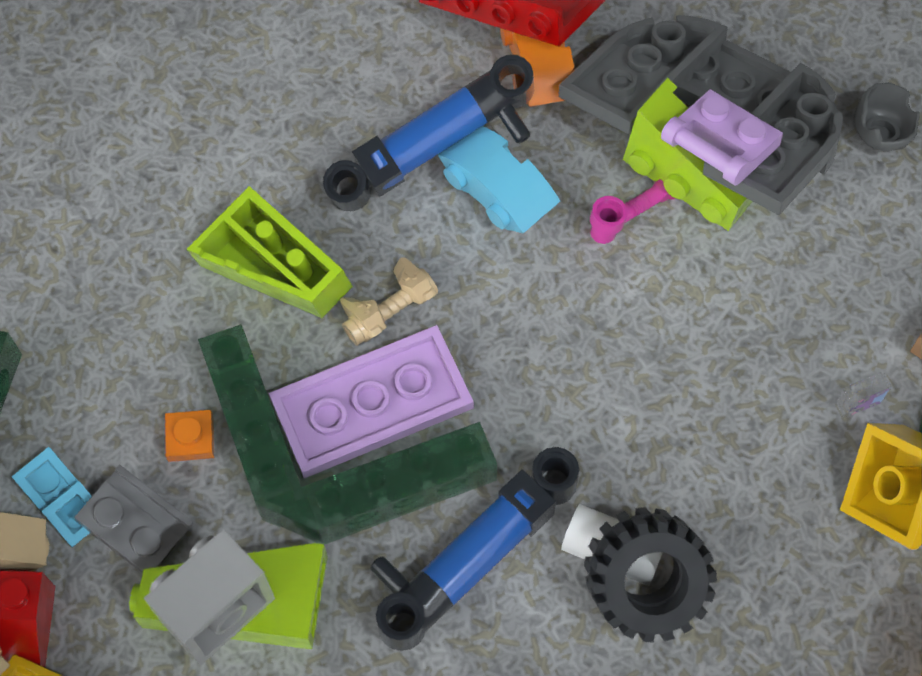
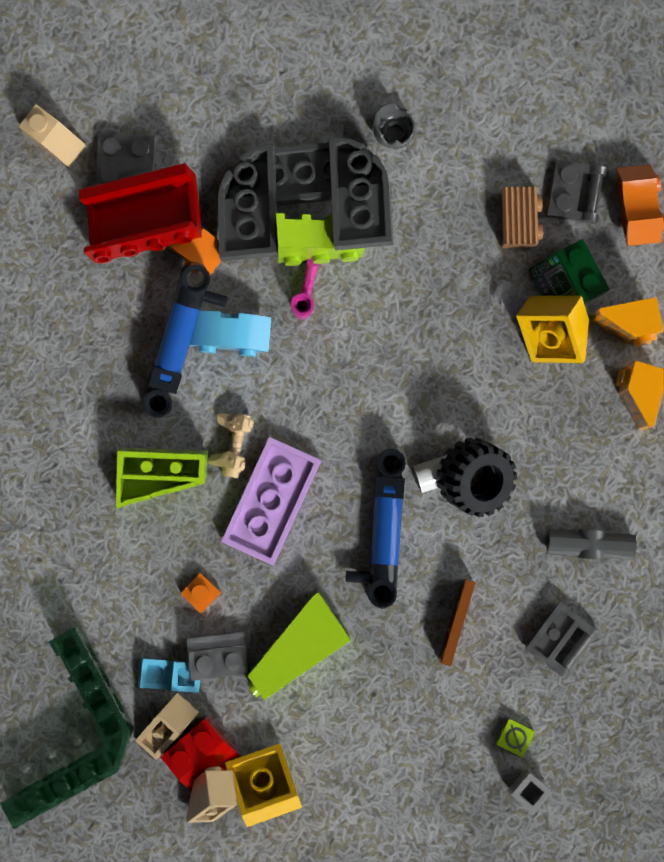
camera: 45 degrees left, 20 degrees up
(210, 595) = (298, 666): light grey brick -> none
(347, 499) = (264, 580): clear green brick -> none
(723, 136) = (331, 217): lavender plate -> none

